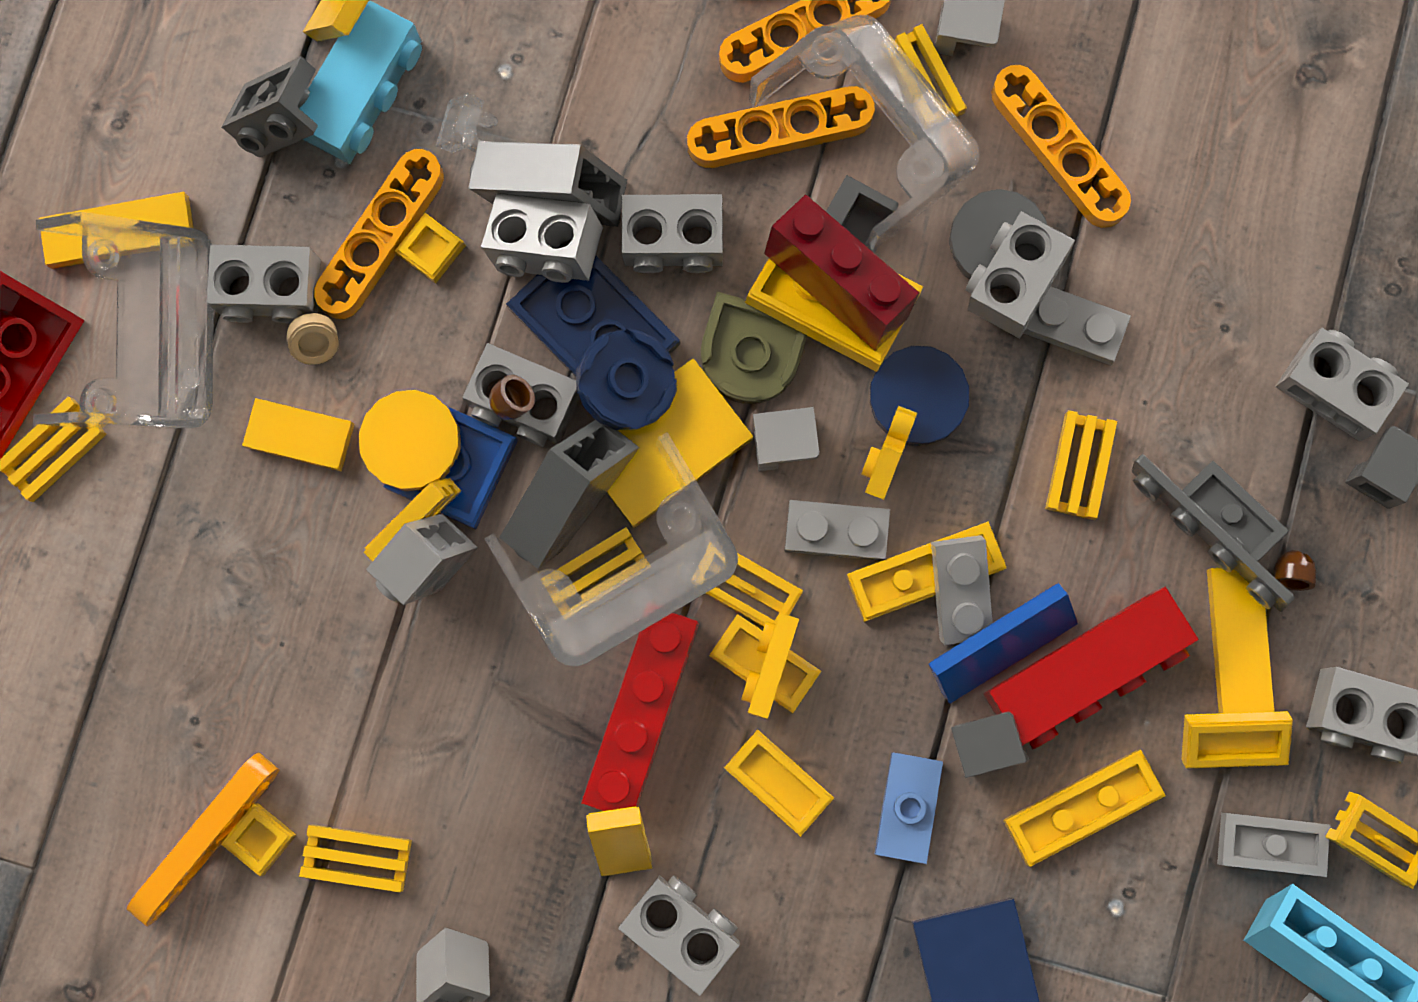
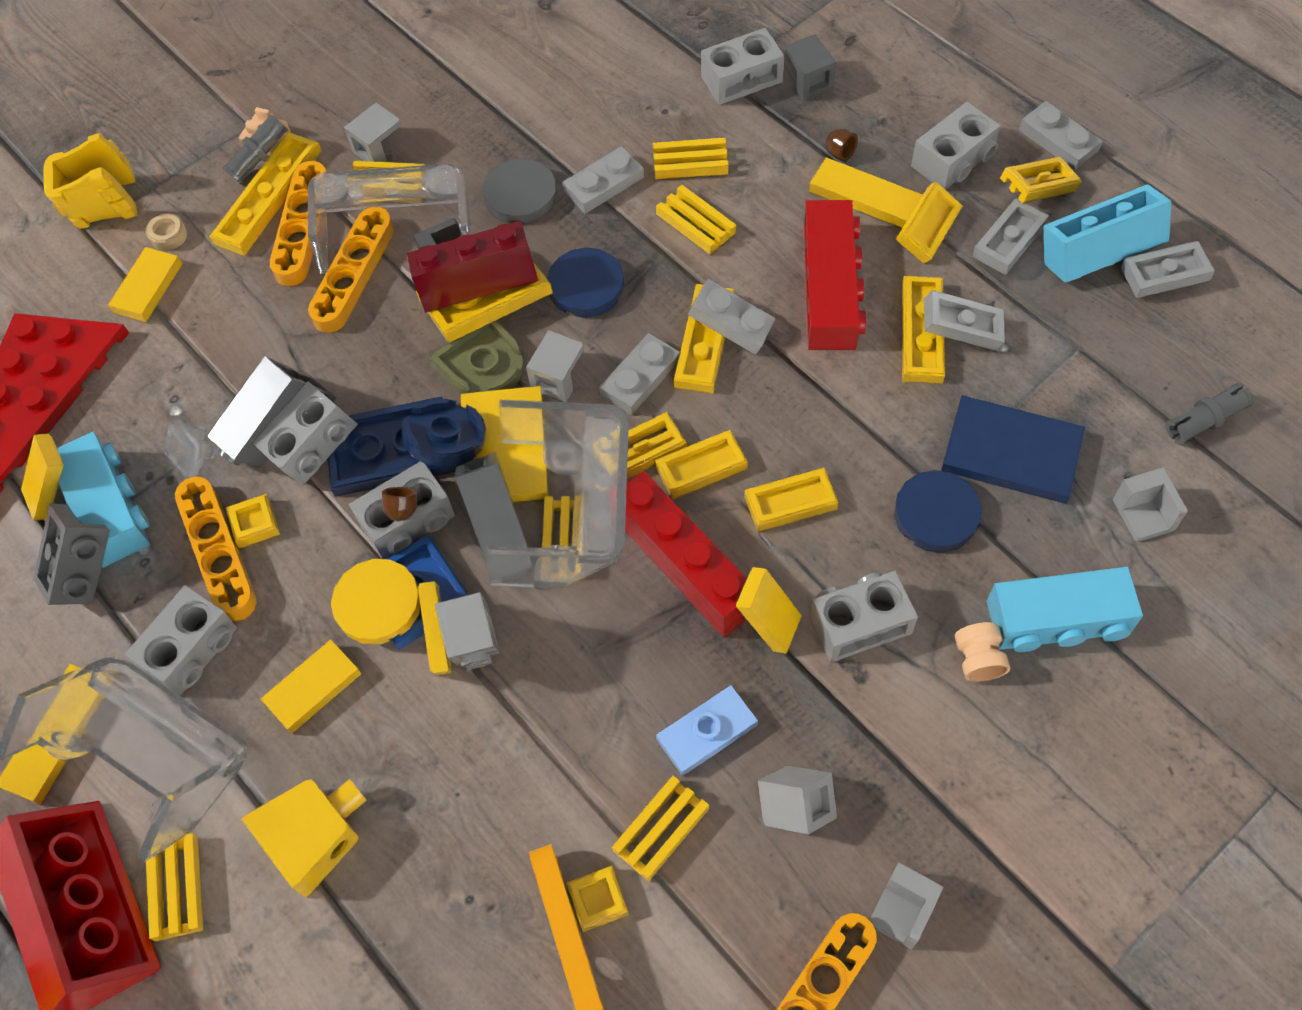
camera: 60 degrees left, 20 degrees down
(159, 535) = (306, 831): none -> yellow torso
(312, 338) = (250, 631): tan tile -> none
(475, 844) = (706, 730): none -> light blue plate
(673, 218) = (371, 350): light grey brick -> none
(762, 686) = (713, 452): yellow plate -> none
(855, 945) = (937, 511): none -> dark blue tile
(882, 463) = (615, 313): yellow plate -> none
(908, 808) = (859, 428): medium blue plate -> none
(989, 744) = (845, 350): dark grey panel -> none
(1003, 643) = (783, 313): blue tile -> none
(1027, 278) = (551, 178): light grey brick -> none
(1067, 141) = (488, 126): light orange beam -> none
(1111, 853) = (964, 320): none -> light grey plate
(1182, 395) = (690, 153): none -> yellow tile
(1226, 519) = (785, 159): dark grey bracket -> none

